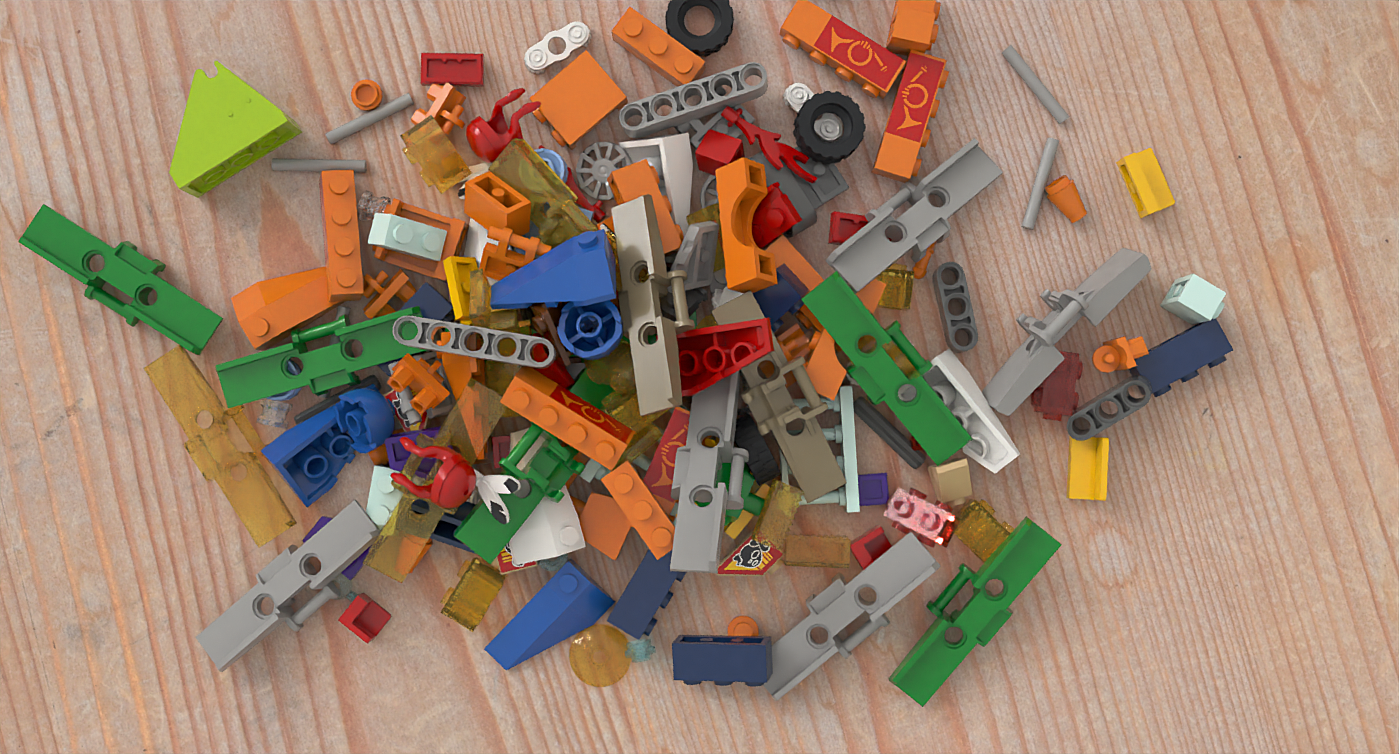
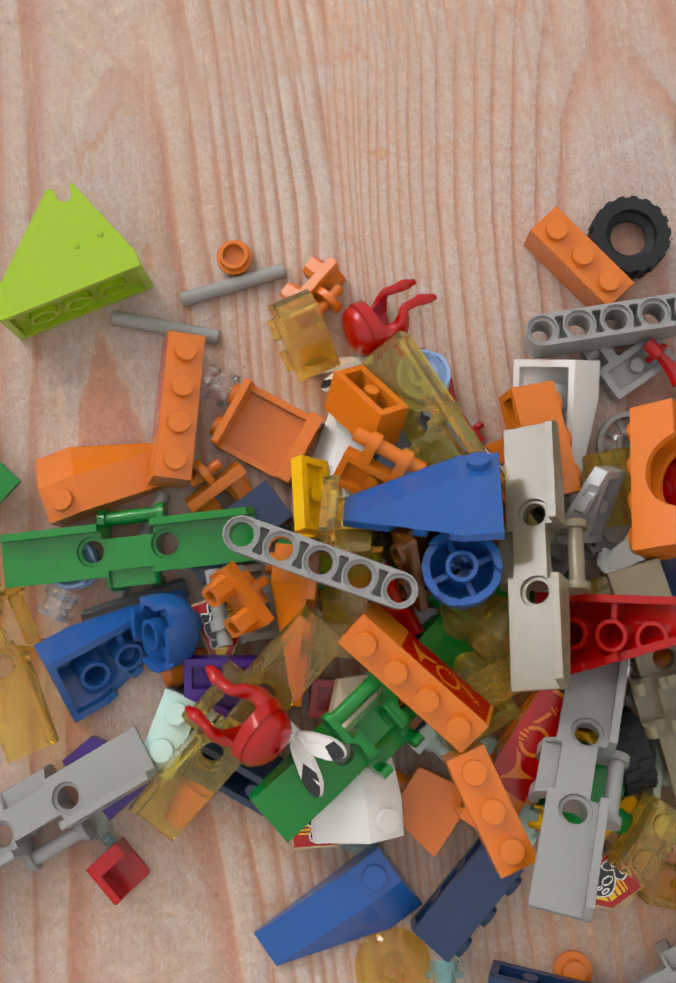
camera: 15 degrees right, 5 degrees down
(407, 236) = (253, 423): light aqua brick -> none
(453, 68) = (345, 245): red plate -> none
(473, 593) = (254, 866): clear yellow brick -> none
(539, 57) = (439, 248): white piece -> none
(577, 100) = (476, 303): orange panel -> none
(601, 168) = (489, 386): light grey wheel -> none
(717, 151) = (630, 388): red panel -> none

